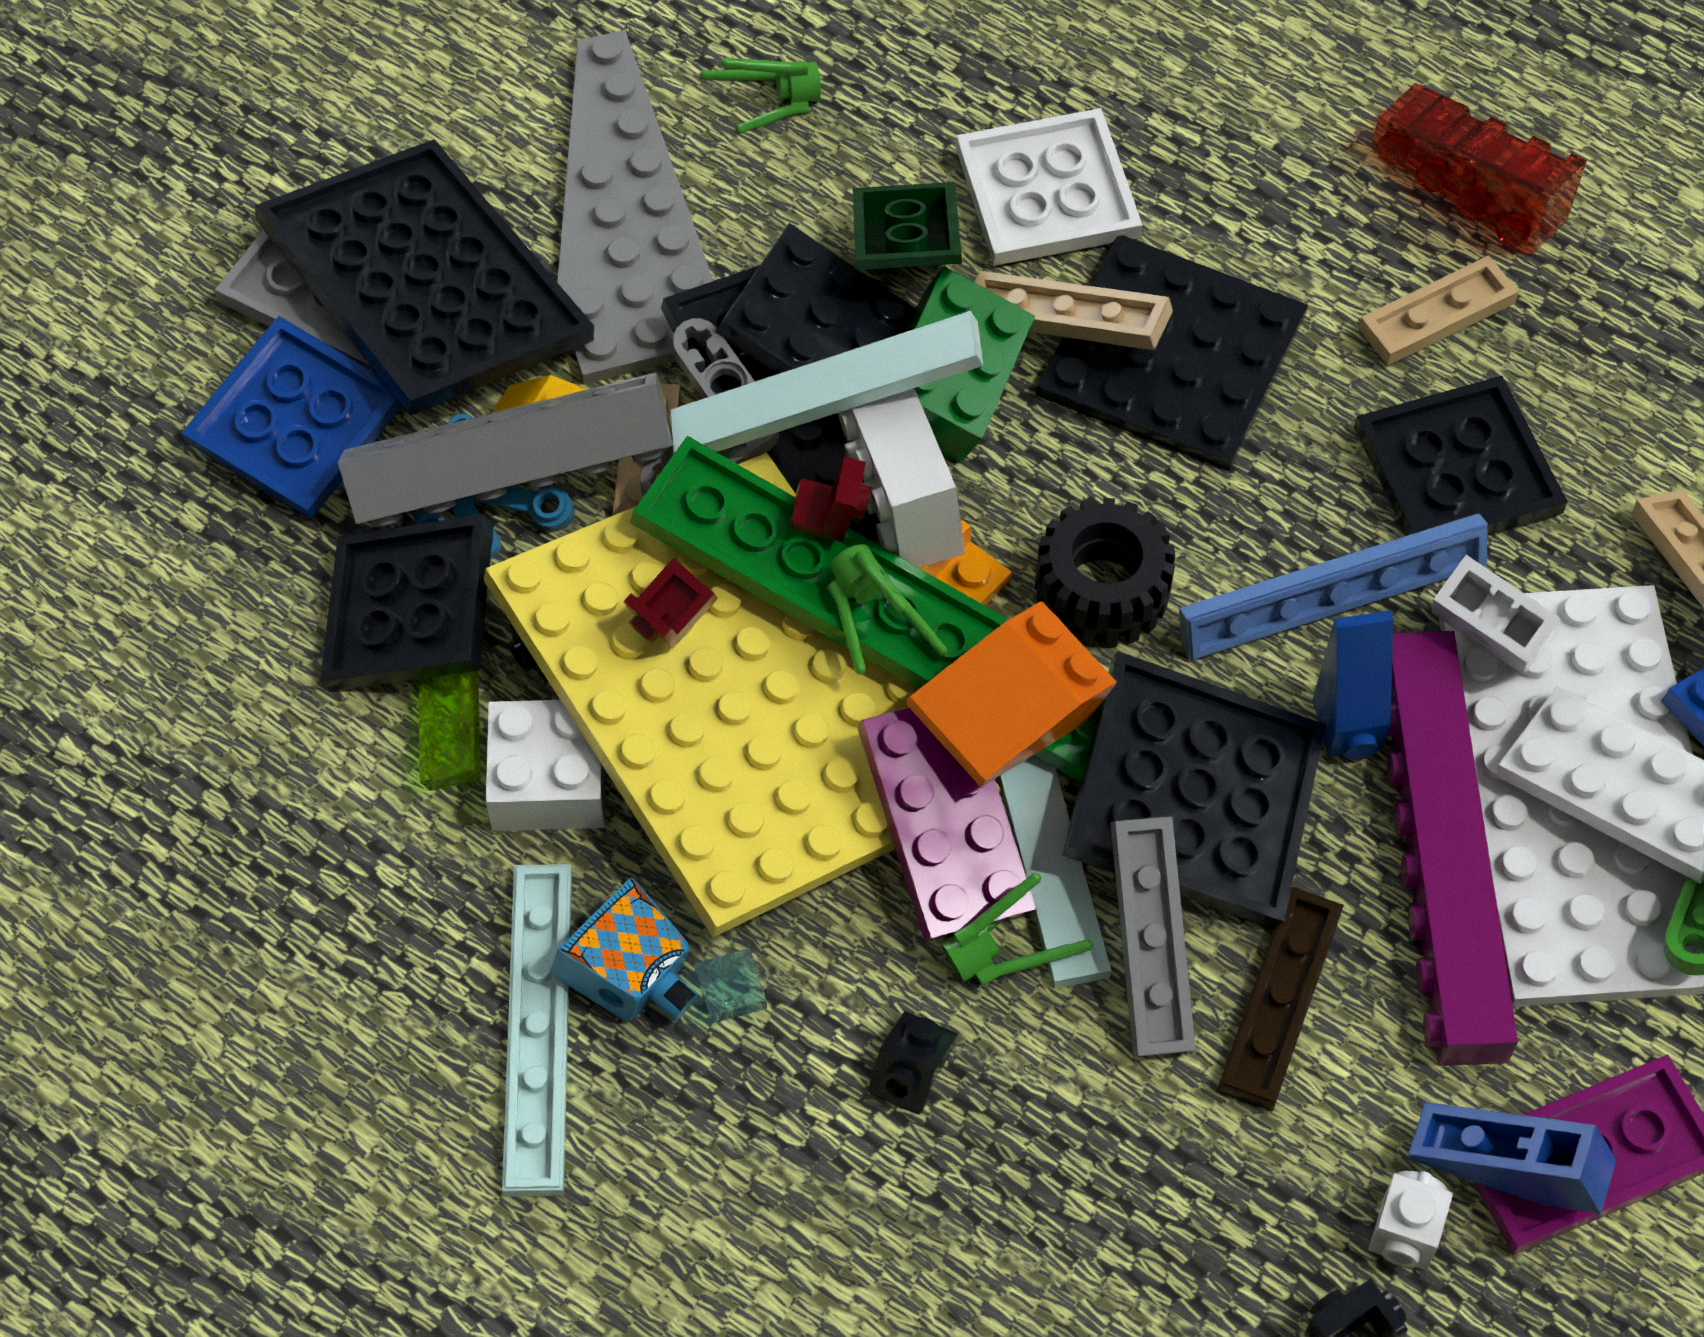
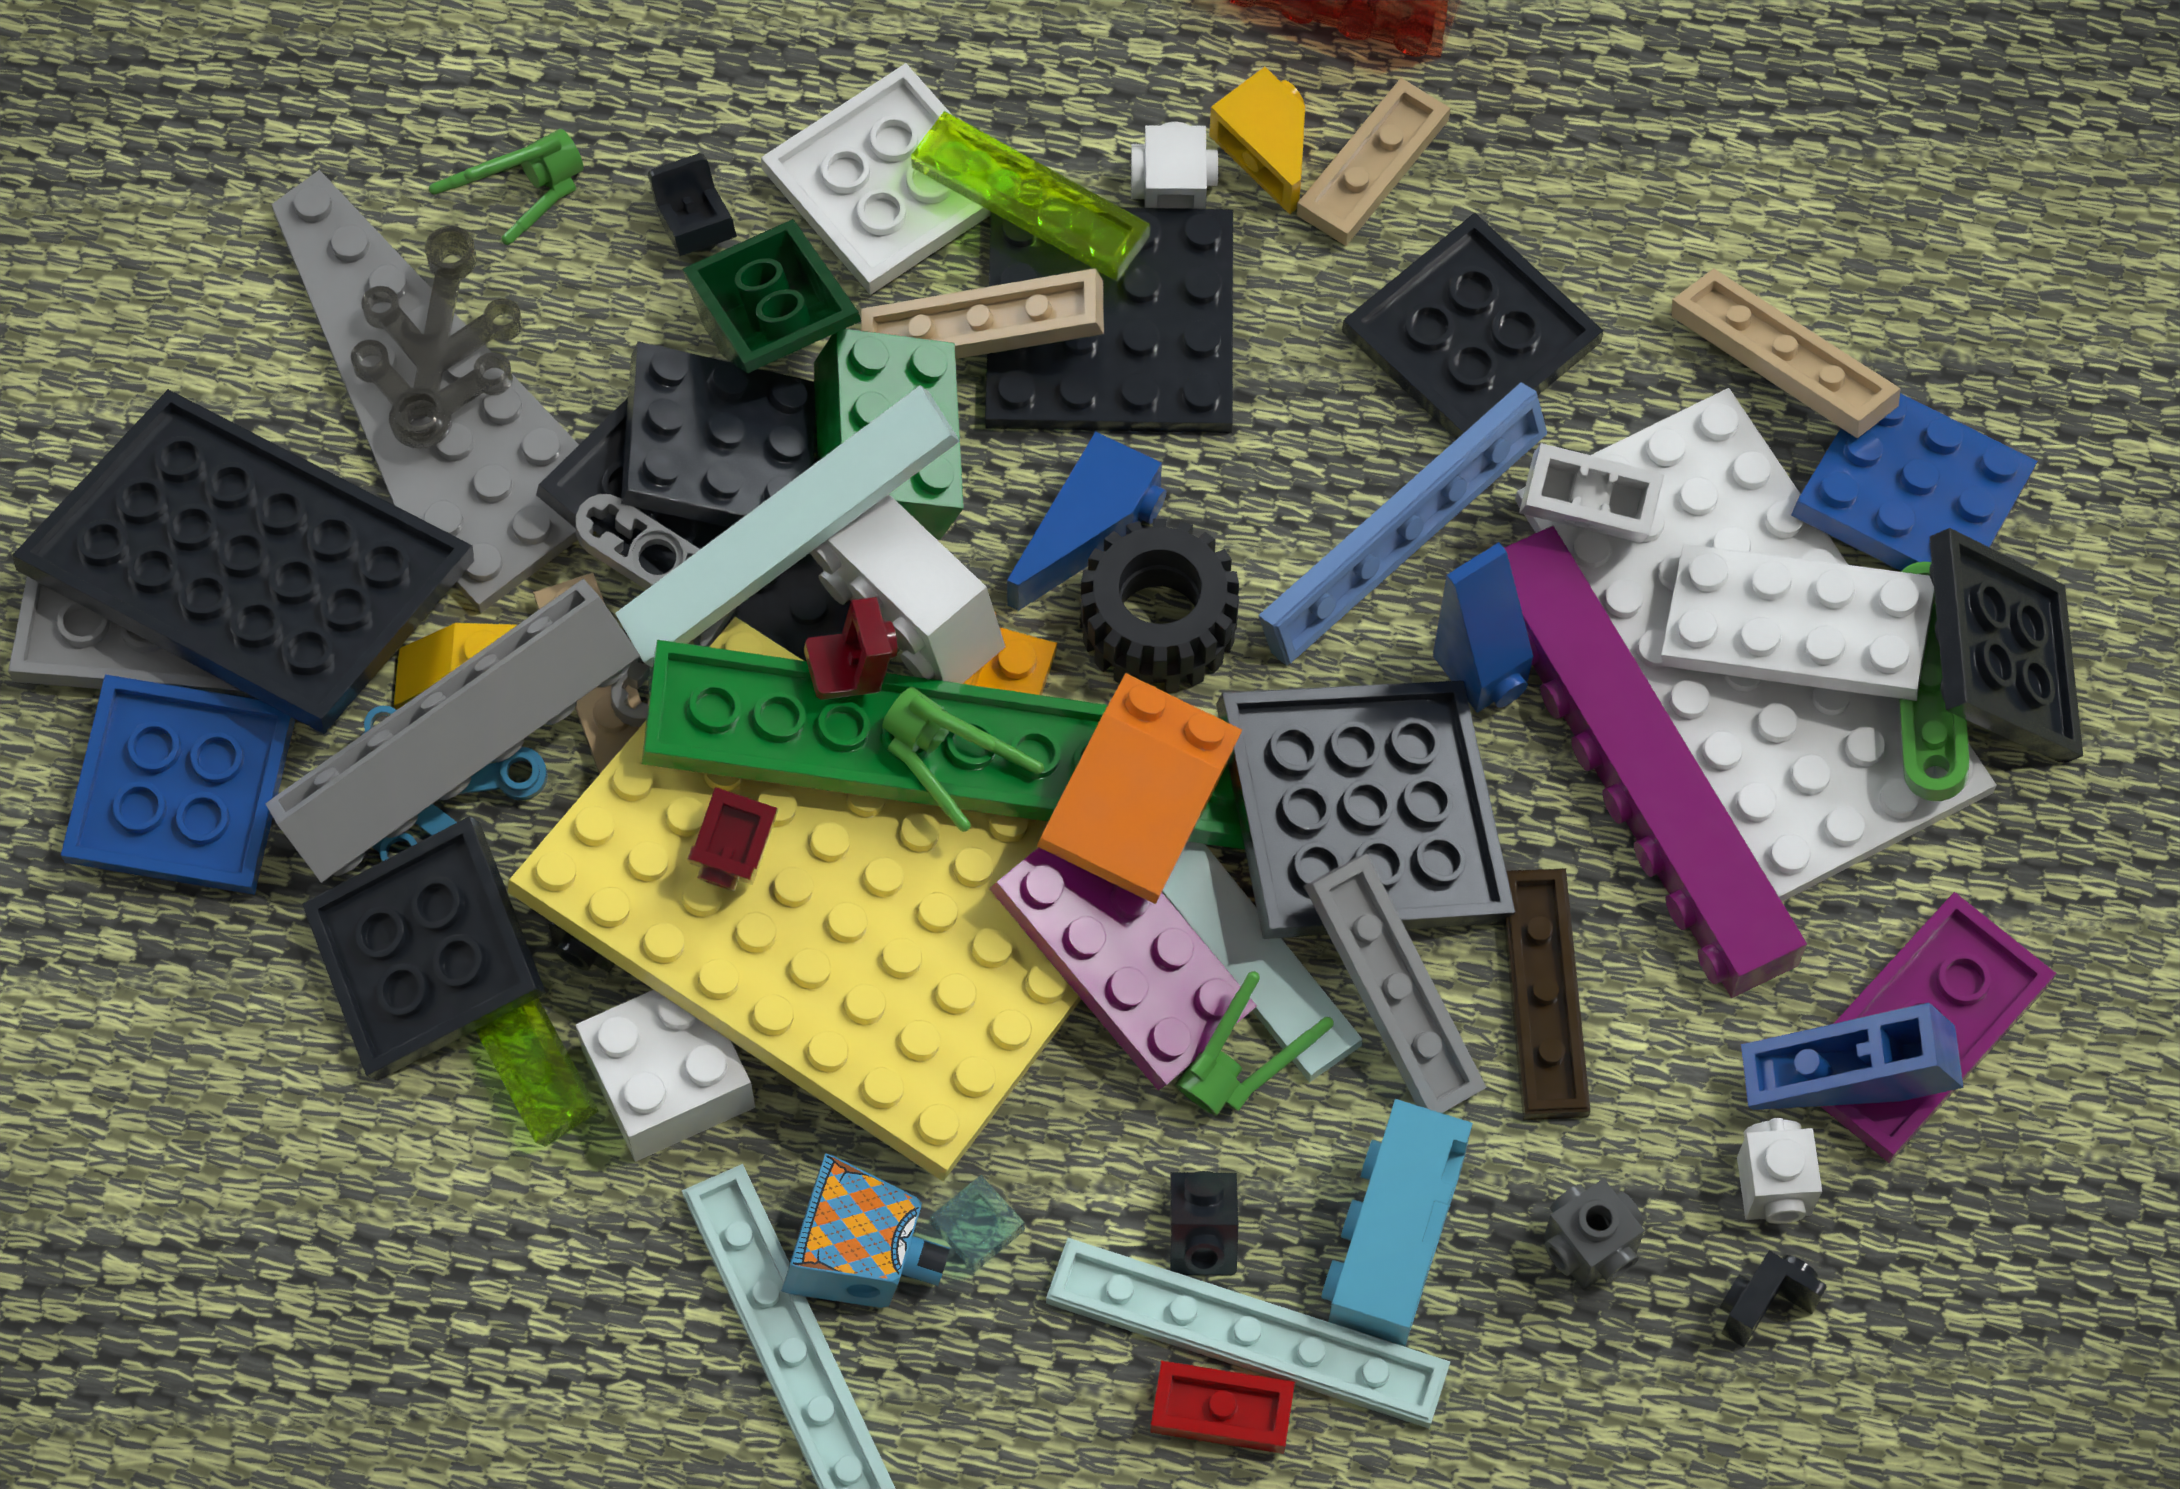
camera: 25 degrees left, 5 degrees up
(684, 122) = (435, 349): none -> clear smoke plant
(856, 1213) = (1222, 1407): none -> red plate
(886, 149) = (690, 205): none -> black bracket
(909, 1166) = (1248, 1332): none -> light aqua tile
(1068, 1125) = (1397, 1222): none -> medium azure wedge
(1098, 469) = (1101, 496): none -> blue slope
(1149, 233) = (1030, 195): none -> clear neon green plate
(1227, 1221) = (1588, 1252): none -> dark grey brick
(1274, 255) = (1173, 167): none -> white brick
(1359, 257) = (1264, 134): none -> yellow slope

